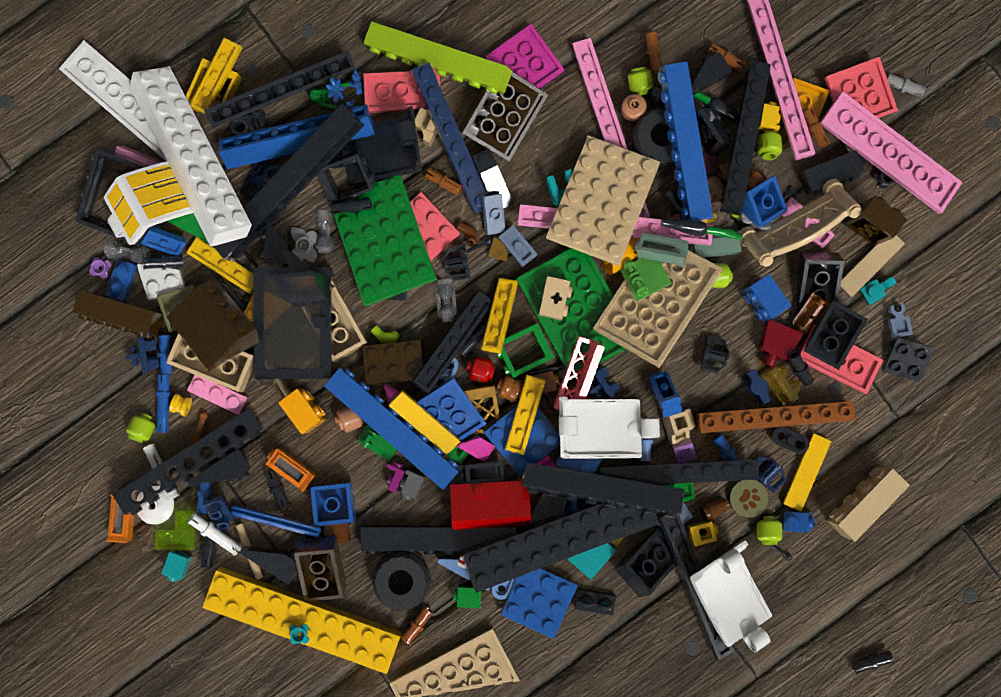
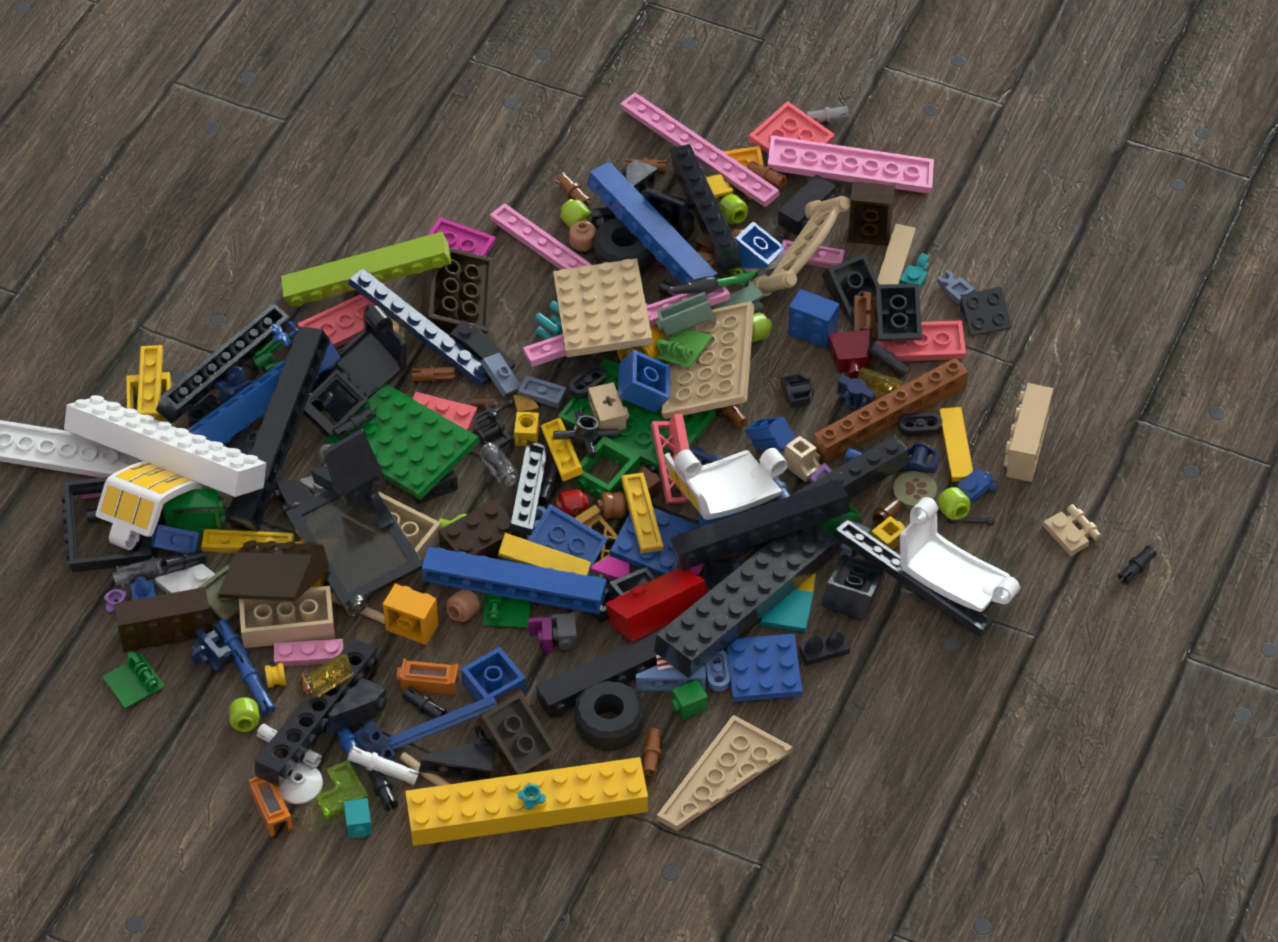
camera: 25 degrees left, 35 degrees down
(78, 349) = (133, 680): none -> green hinge
(199, 445) = (329, 675): none -> clear yellow tile
(279, 113) = (232, 383): none -> dark blue hips
(479, 282) = (526, 428): none -> yellow brick
(531, 311) = (586, 433): none -> black bar
(554, 262) = (586, 380): none -> black plate
(594, 294) = (644, 381): none -> blue brick
(838, 601) = (1067, 534): none -> tan plate

